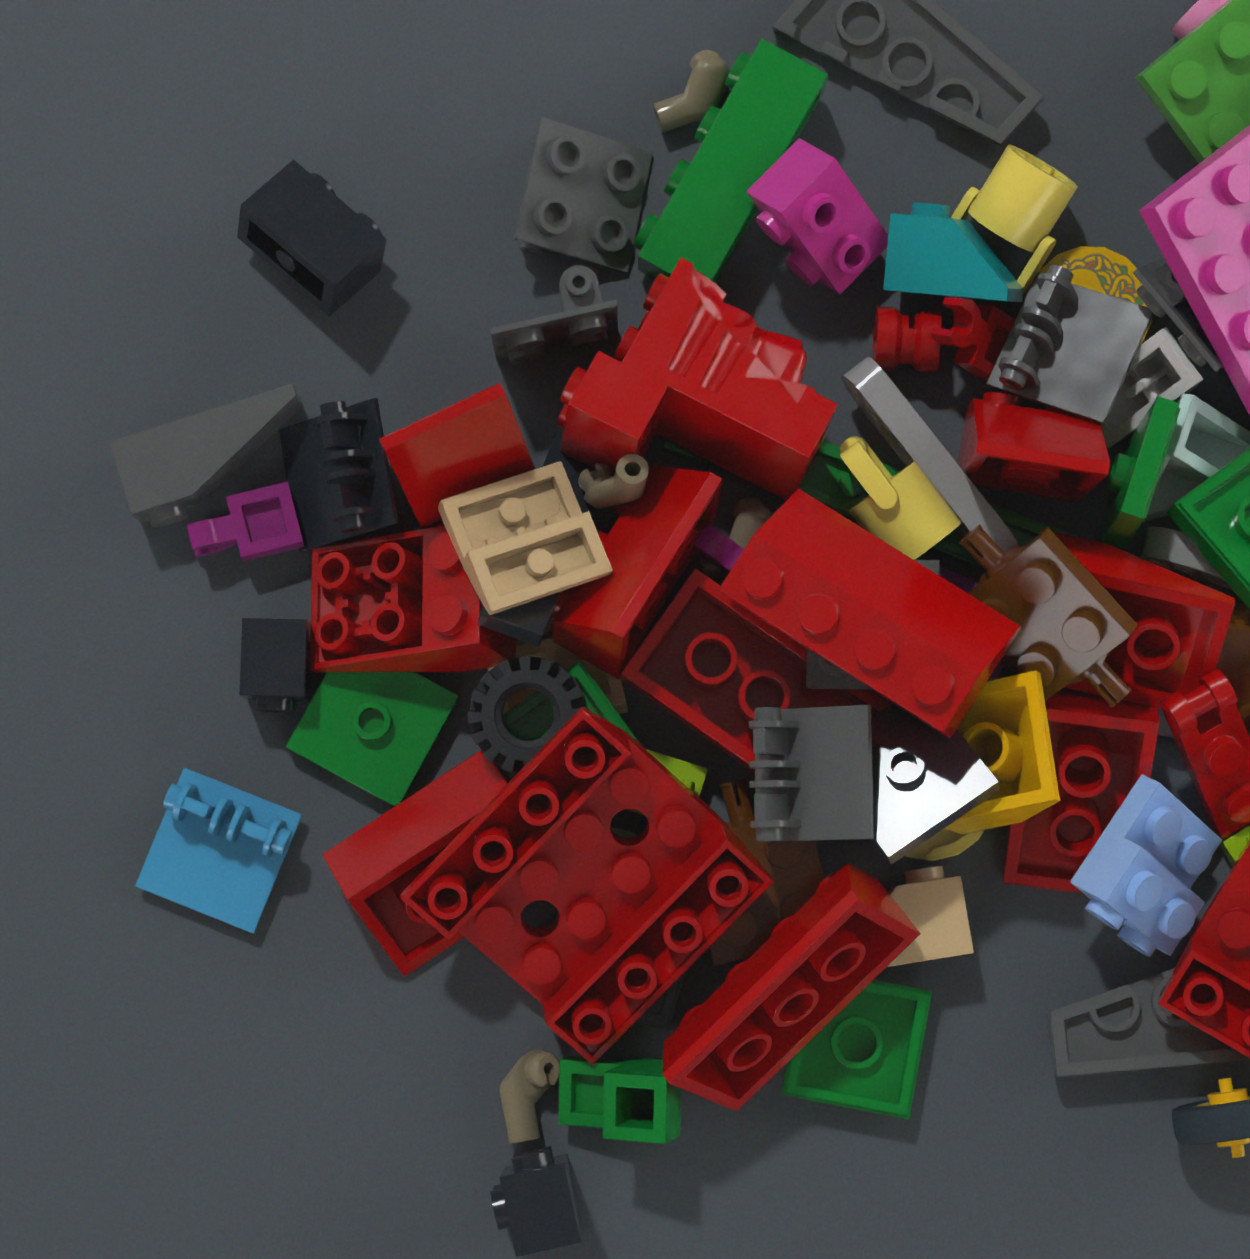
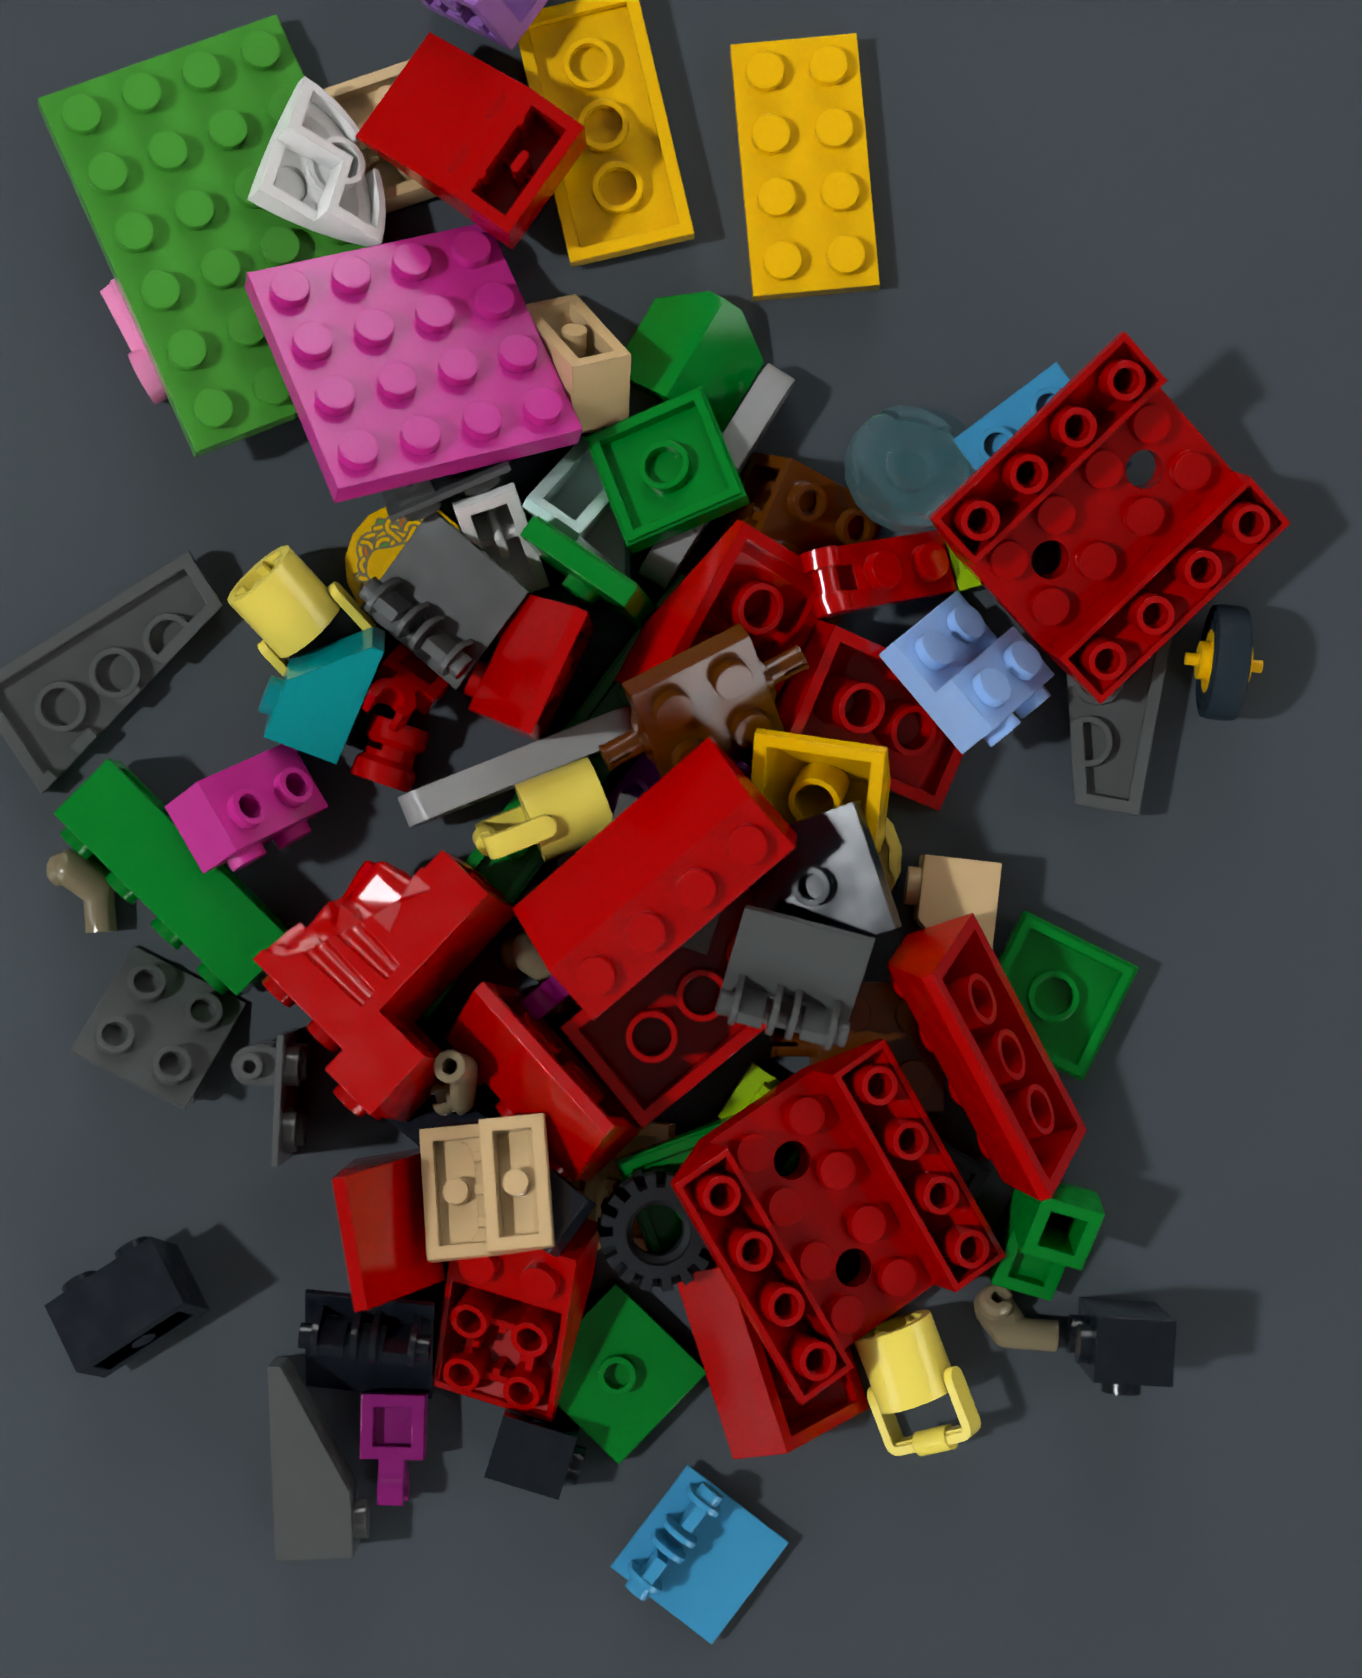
camera: 70 degrees left, 5 degrees up
(458, 999) = (908, 1370): none -> light yellow piece

